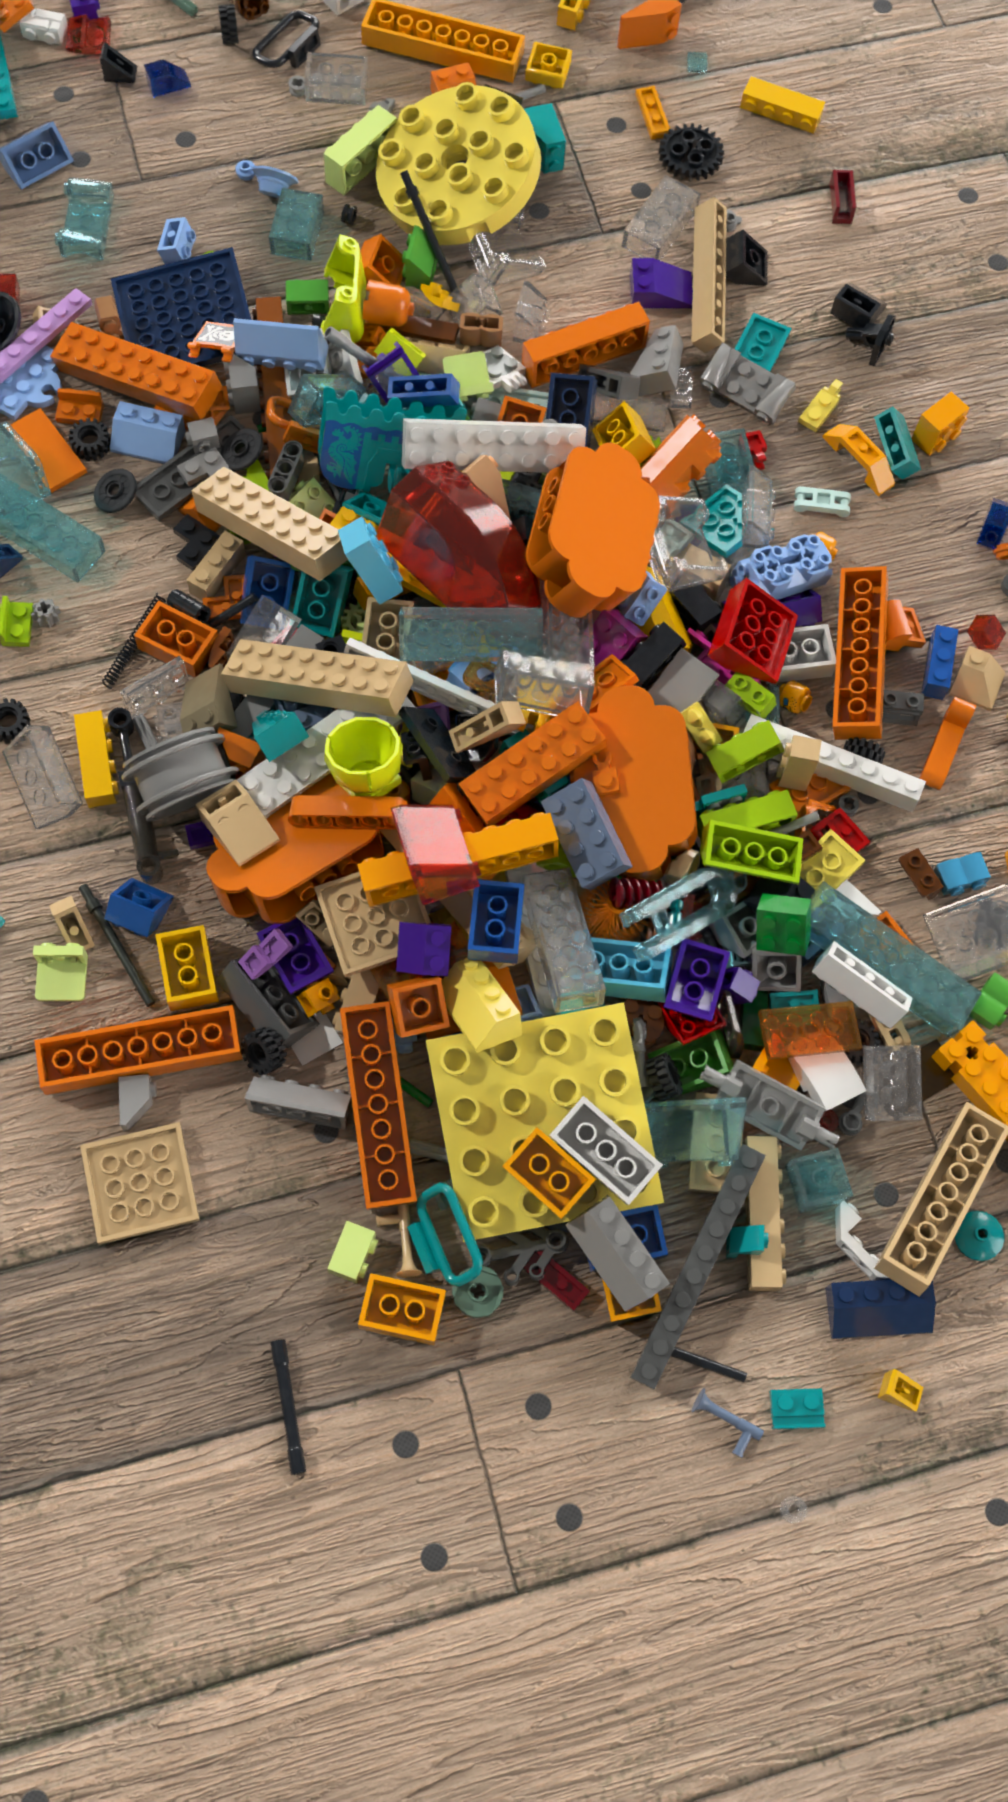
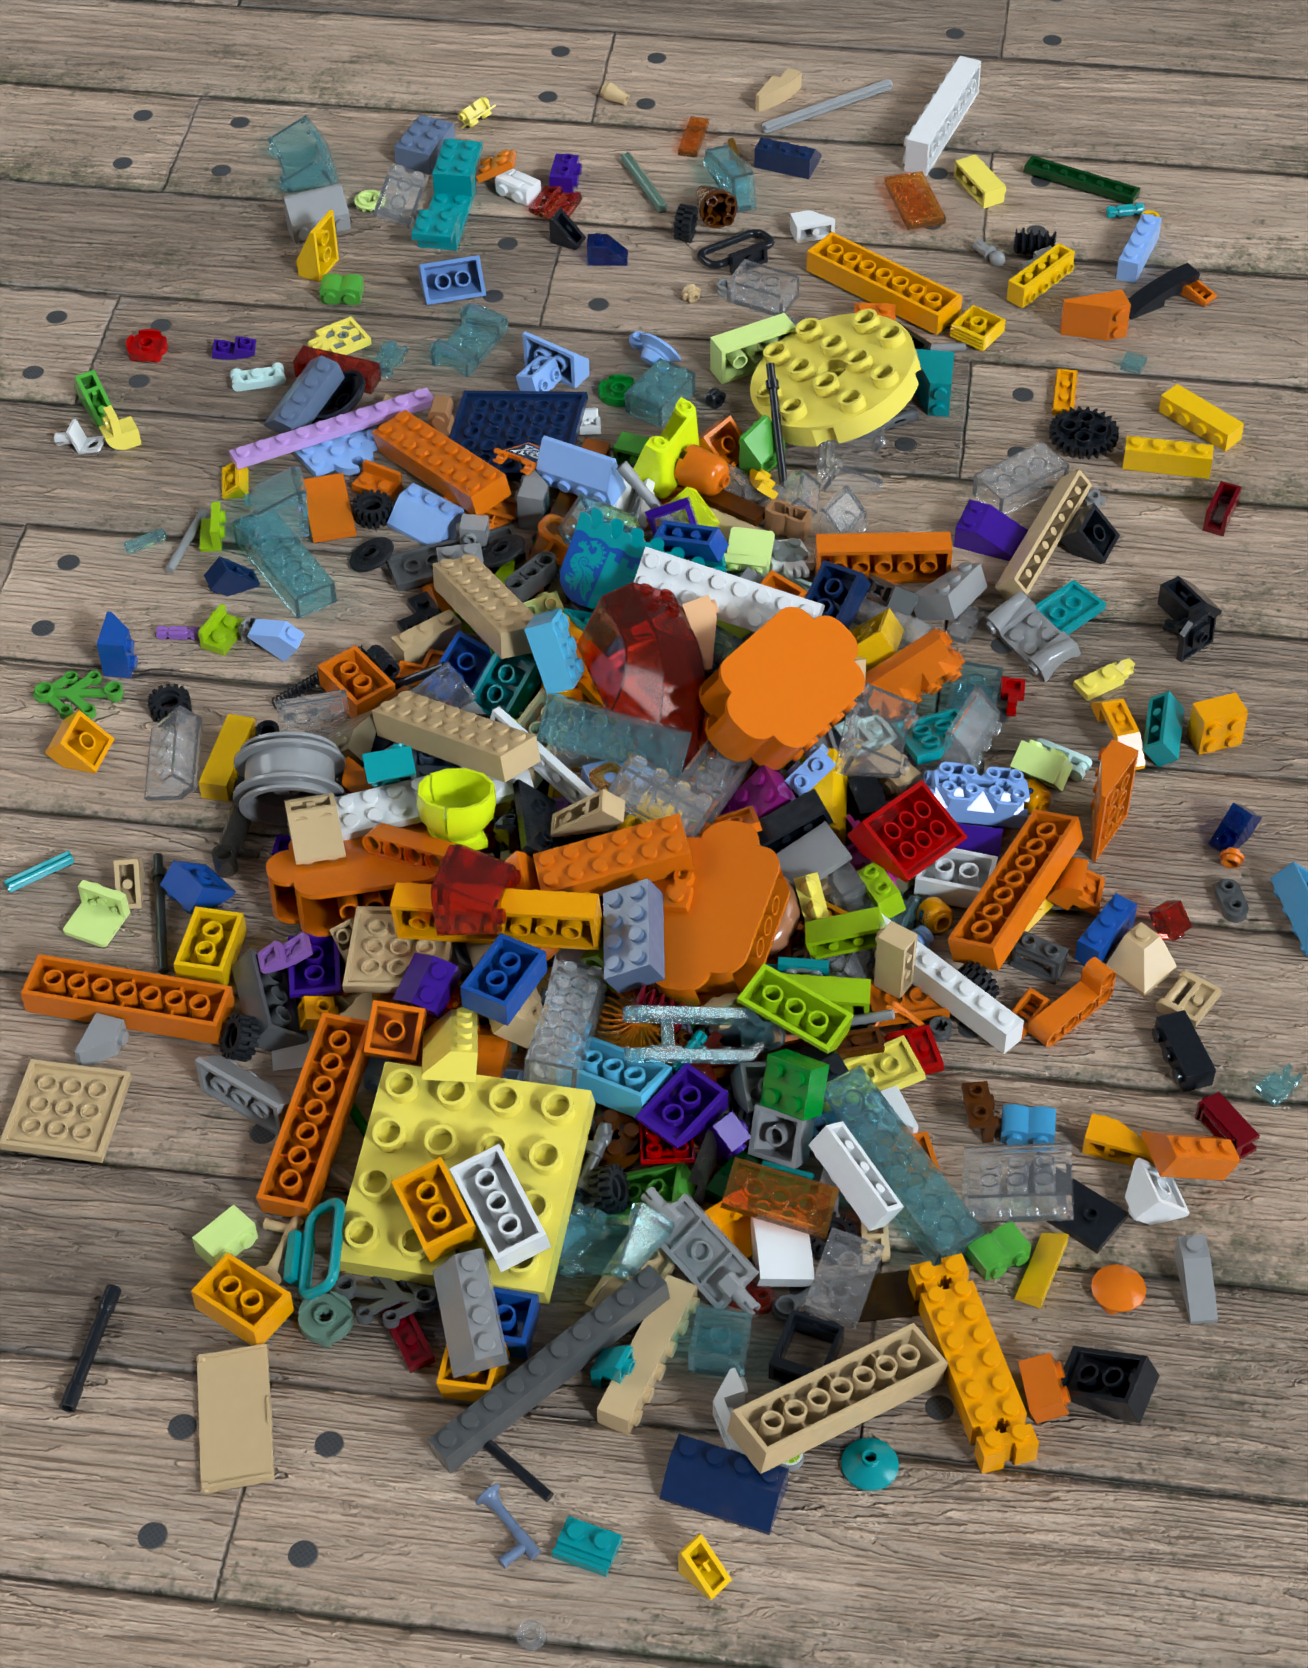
camera: 30 degrees right, 20 degrees down
(20, 262) = (390, 356): none -> clear light blue hips
(75, 614) = (276, 637): none -> light blue slope
(200, 218) = (572, 366): none -> light blue slope
(248, 276) = (591, 422): none -> white slope
(252, 232) = (613, 389): none -> green tile
(269, 102) = (691, 293): none -> tan plate
(449, 1419) = (235, 1418): none -> tan door
(774, 156) = (1168, 457): none -> yellow brick
(792, 721) = (924, 935): none -> light blue plate
(820, 517) = (1047, 766): none -> yellowish green brick
(888, 1183) = (804, 1323): none -> black window
(896, 532) = (1112, 793): none -> orange slope
(913, 748) = (1037, 999): none -> orange slope

